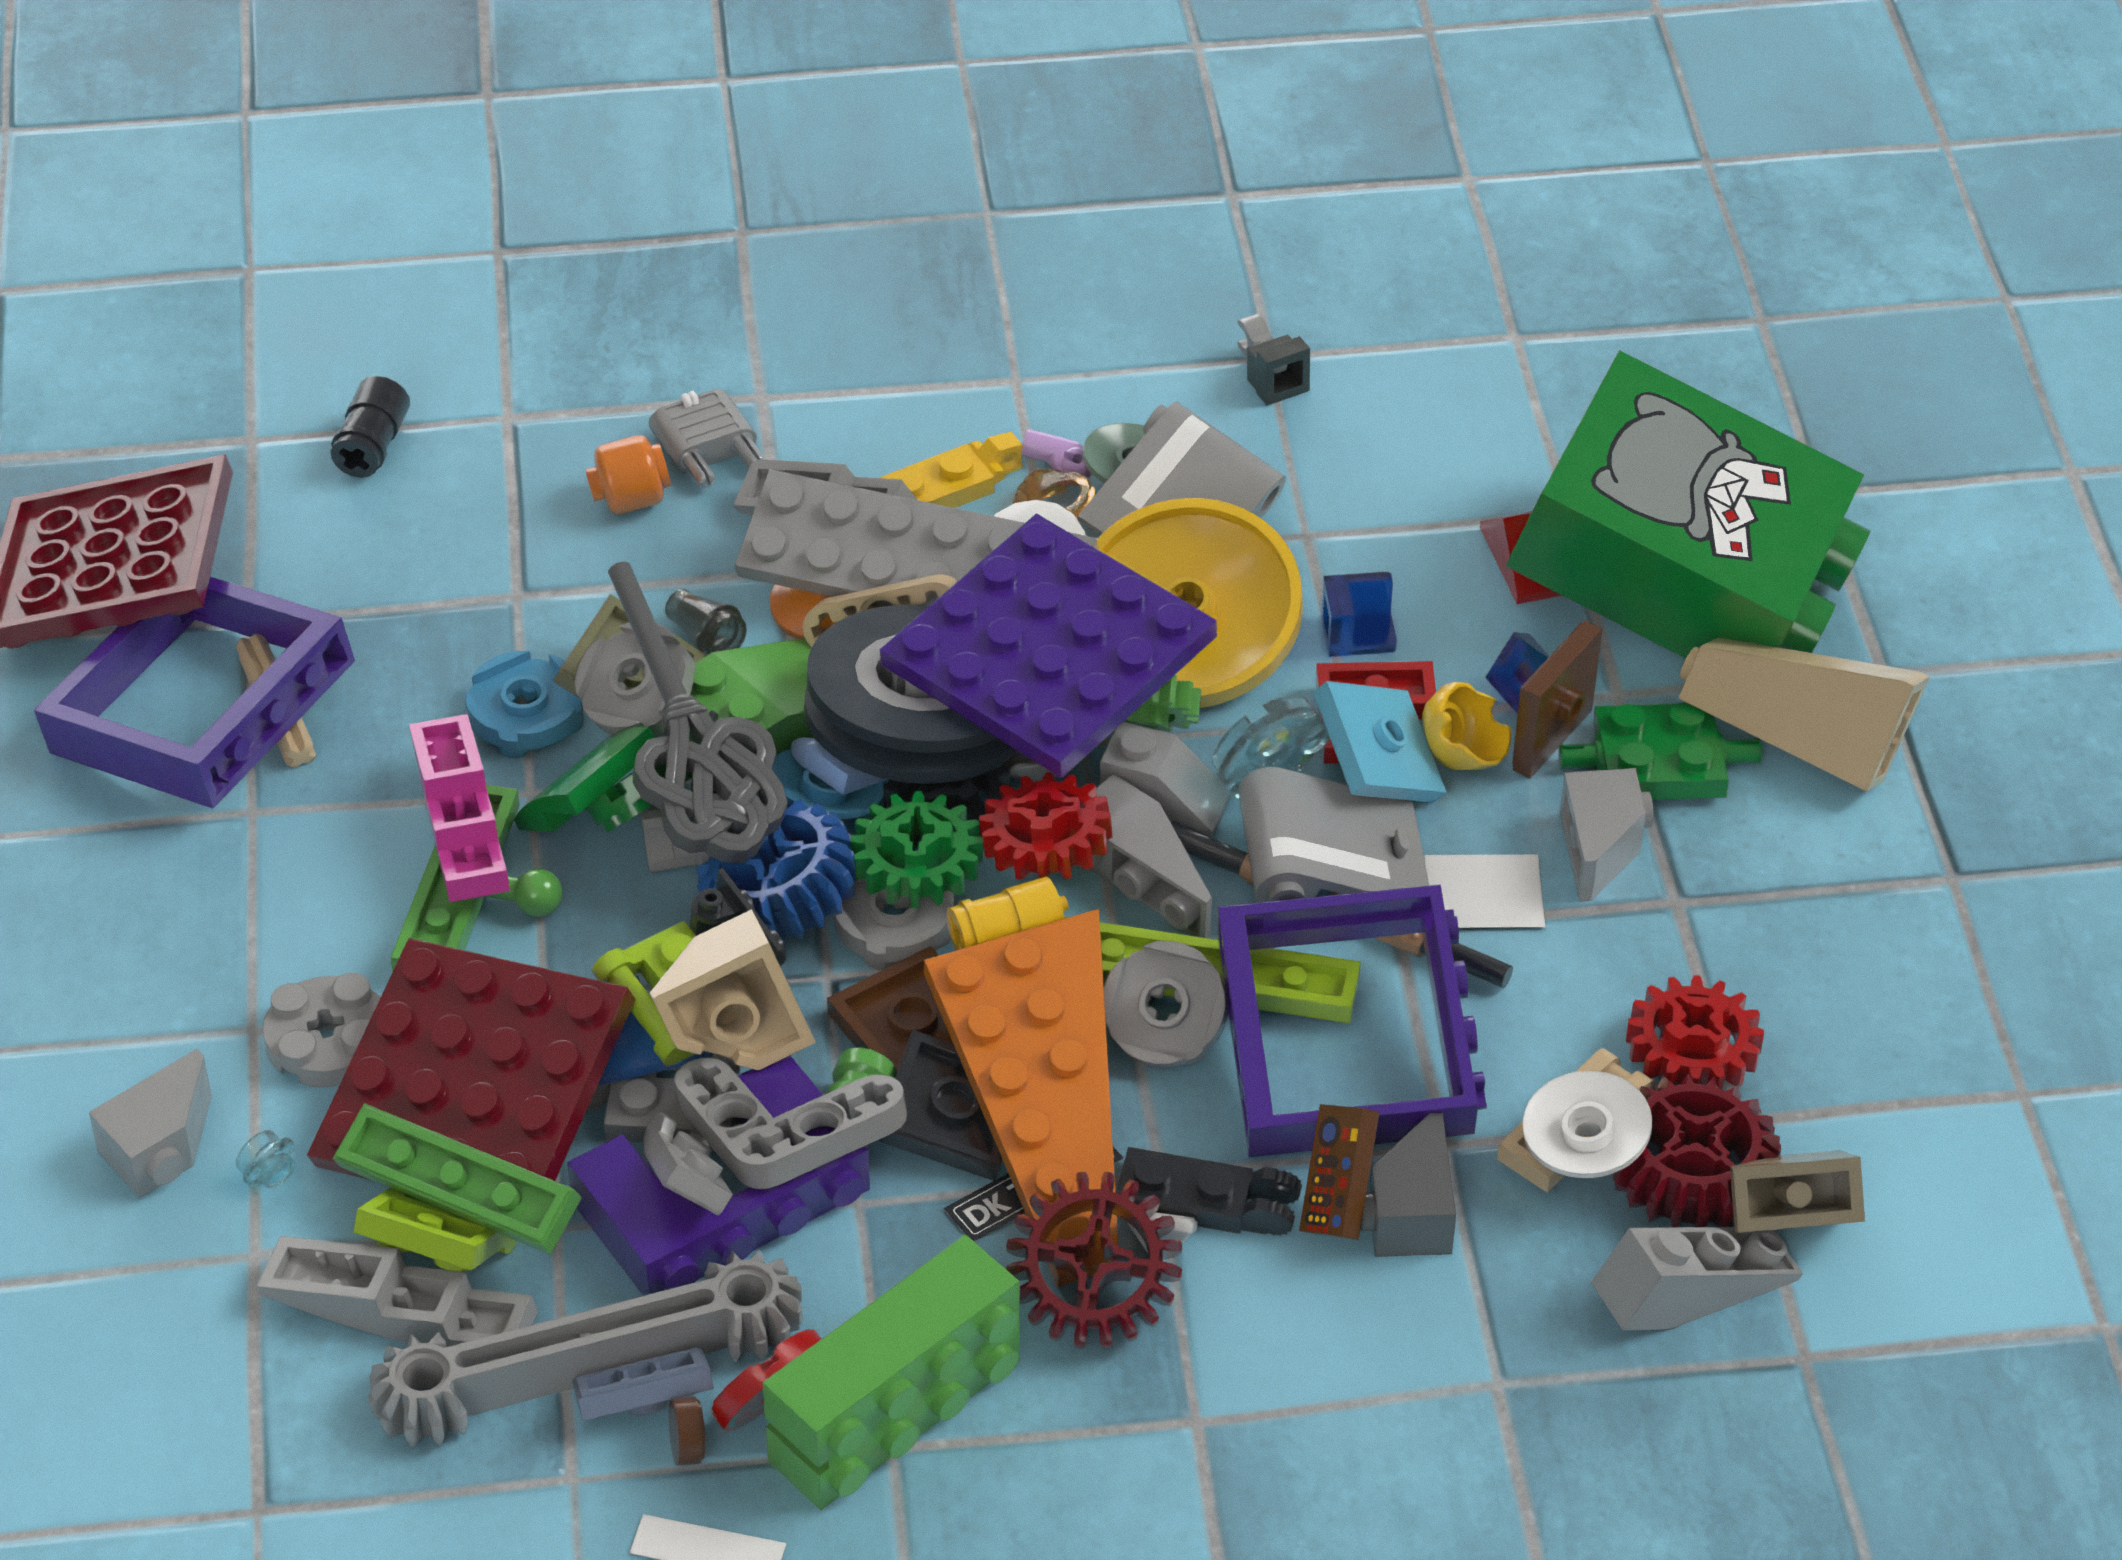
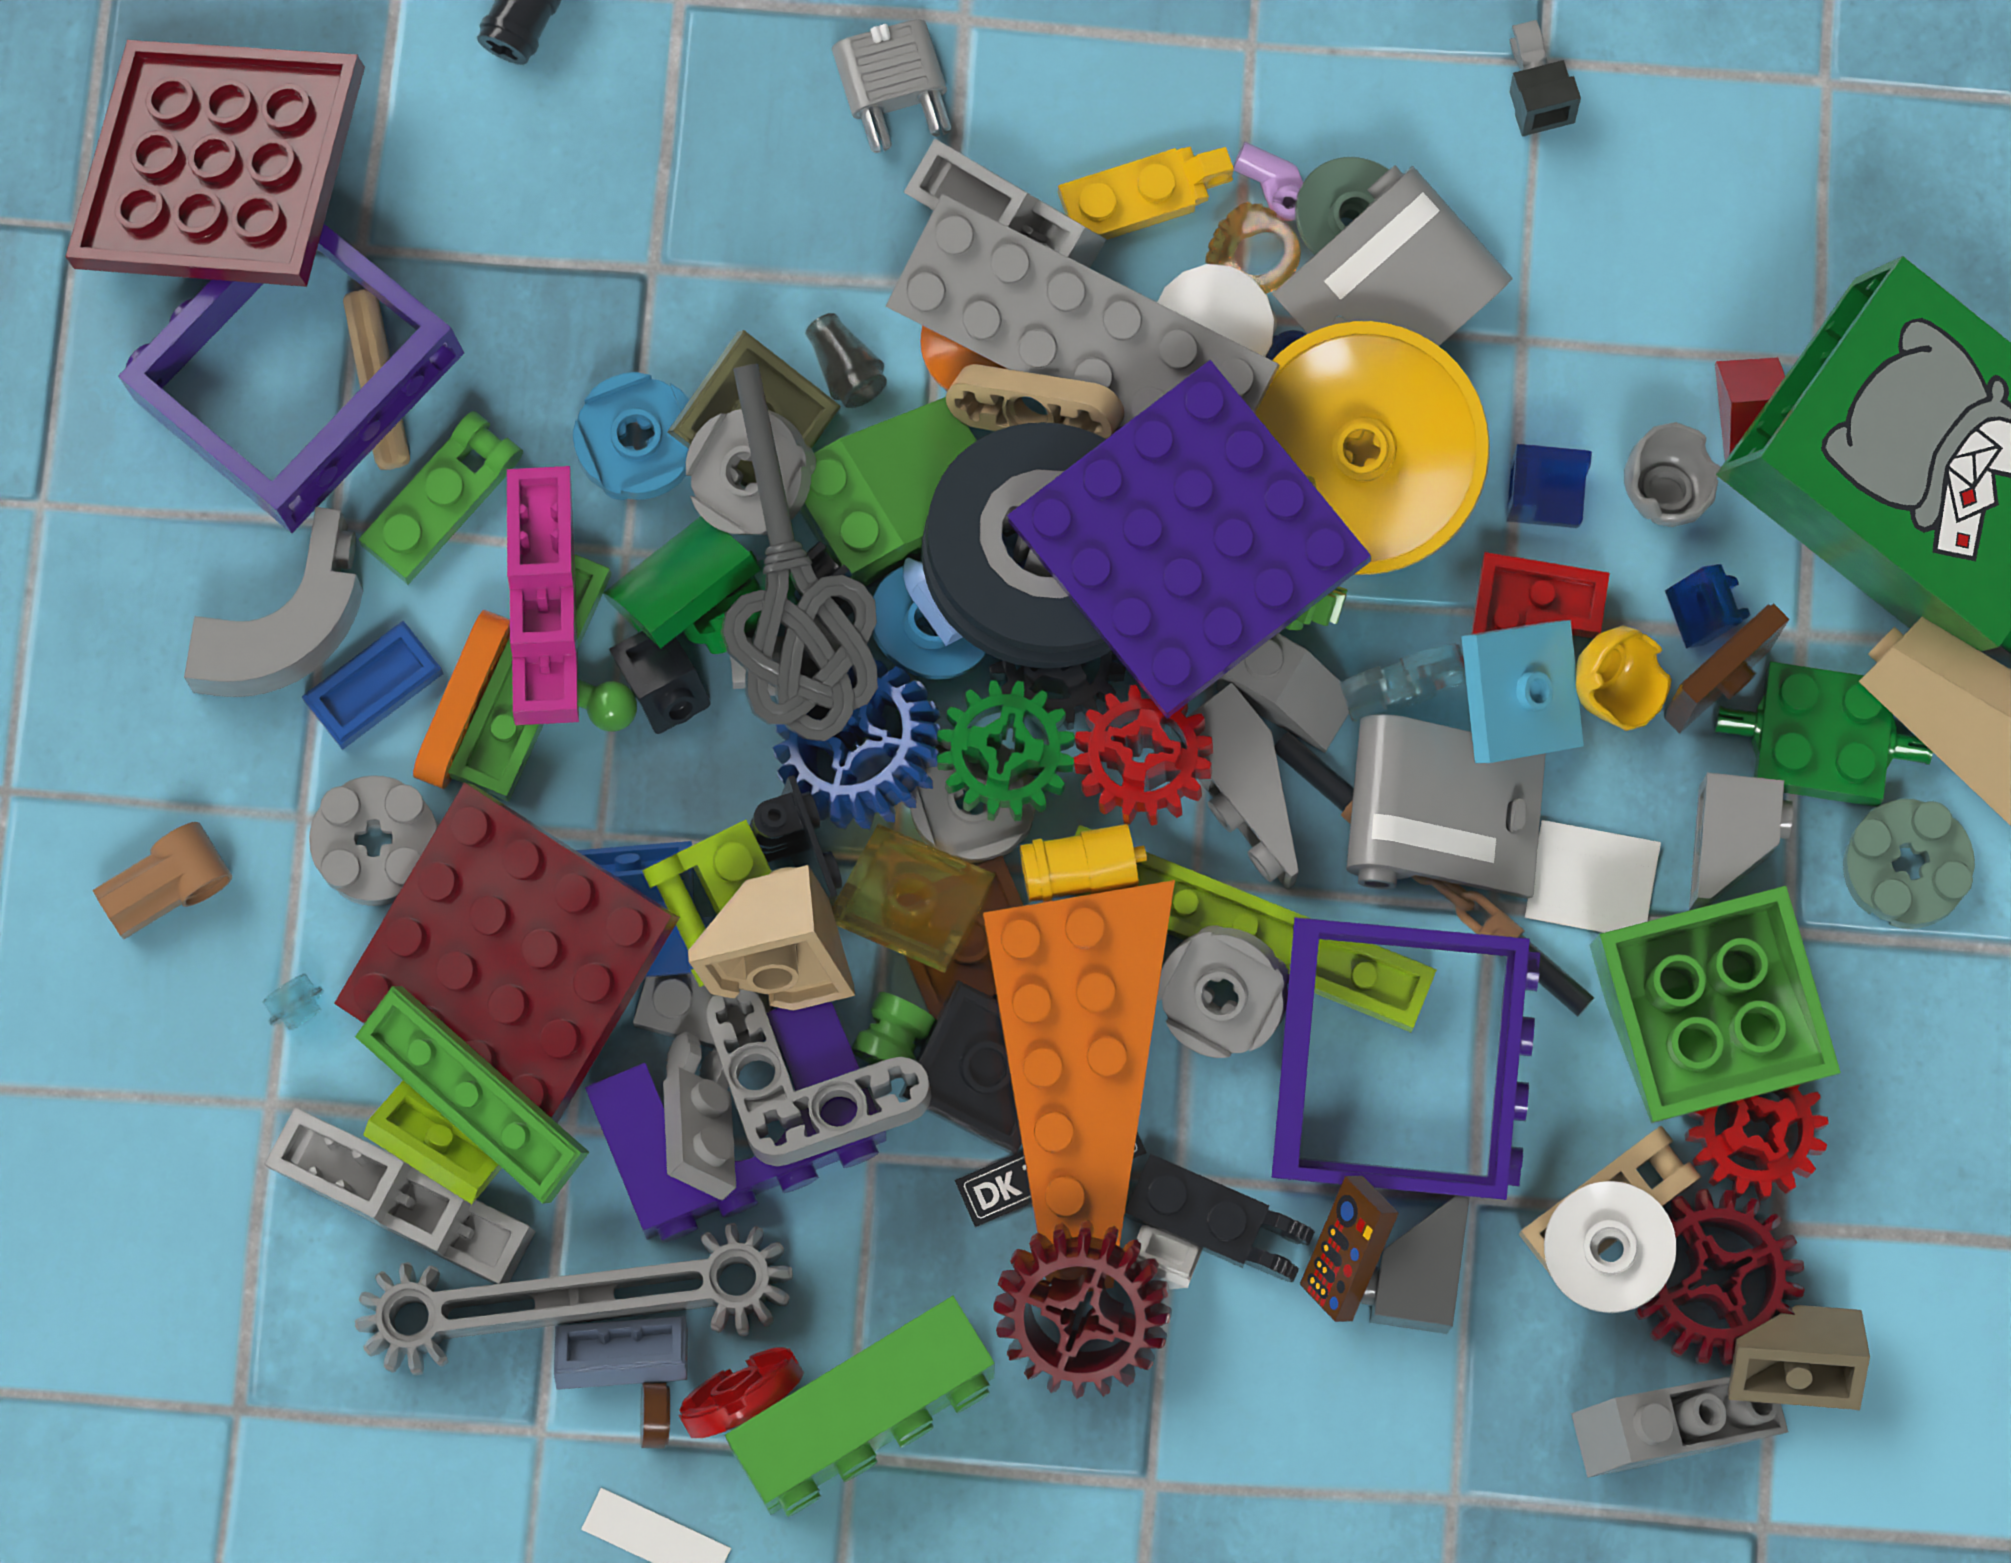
camera: 10 degrees right, 30 degrees up
(130, 1062) = (179, 871): none -> medium nougat piece
(155, 1125) = (190, 942): light grey slope -> none
(216, 892) = (291, 642): none -> light grey arch
(306, 917) = (372, 685): none -> blue tile
(347, 775) = (439, 498): none -> bright green plate
(392, 905) = (461, 698): none -> orange beam
(585, 863) = (661, 680): none -> black bracket
(628, 474) = (795, 134): orange head -> none
(856, 975) = (912, 898): none -> clear yellow slope
(1463, 588) = (1671, 475): none -> light grey hair
(1620, 930) = (1715, 1004): none -> bright green slope
(1770, 805) = (1892, 895): none -> sand green plate

